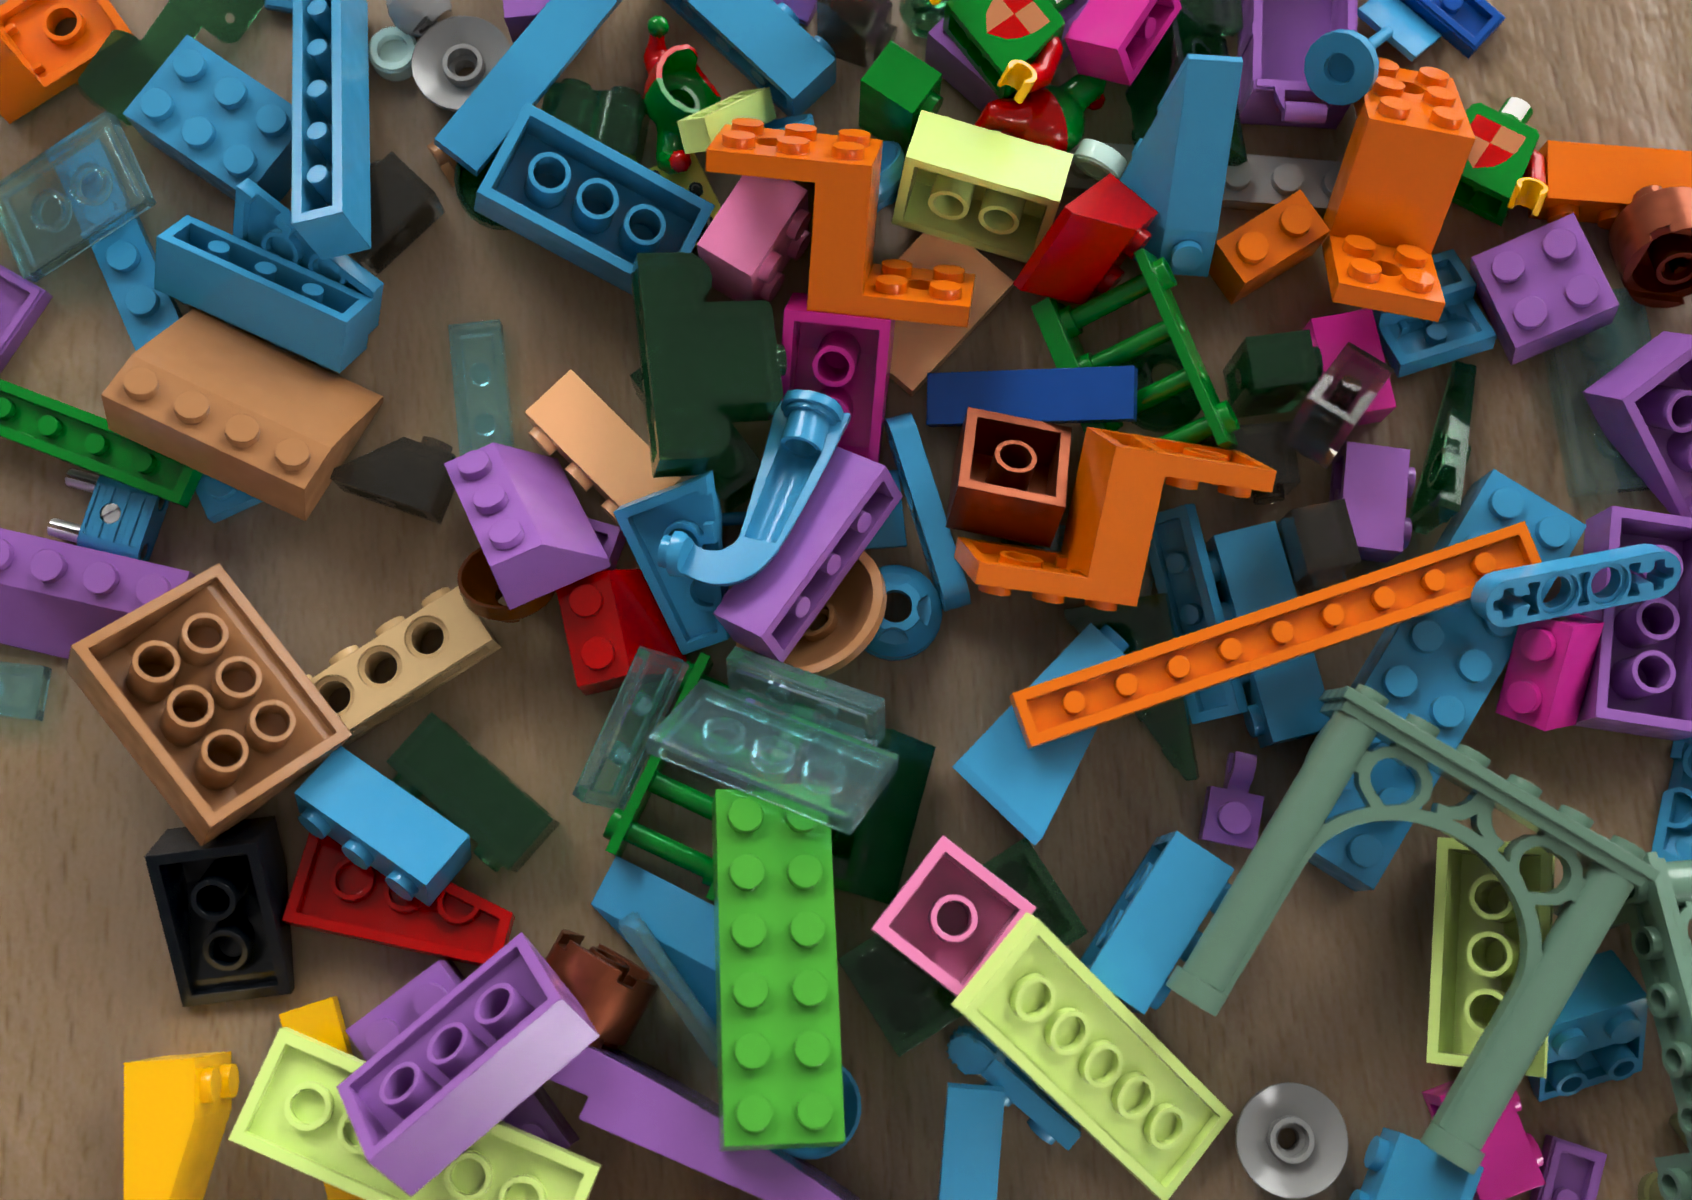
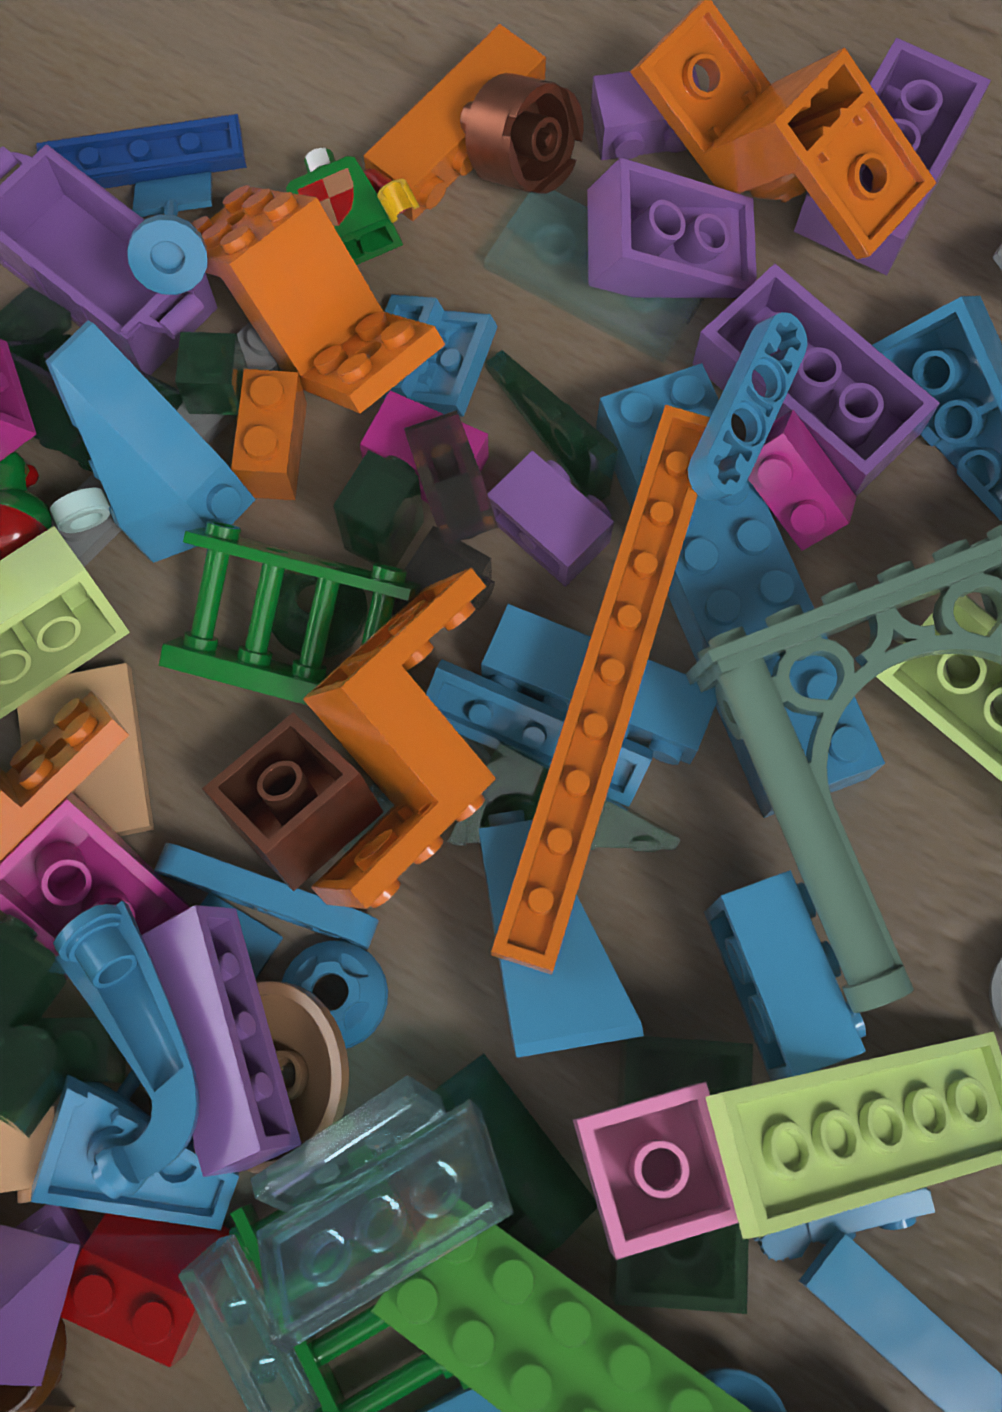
camera: 50 degrees left, 5 degrees down
(1036, 394) = (238, 721): blue tile -> none
(1089, 244) = (144, 574): red slope -> none
(1231, 812) = (729, 831): medium lavender plate -> none
(1277, 168) = (210, 372): none -> clear green brick
(1318, 545) = (558, 583): clear smoke brick -> none
(1543, 289) = (481, 250): medium lavender brick -> none

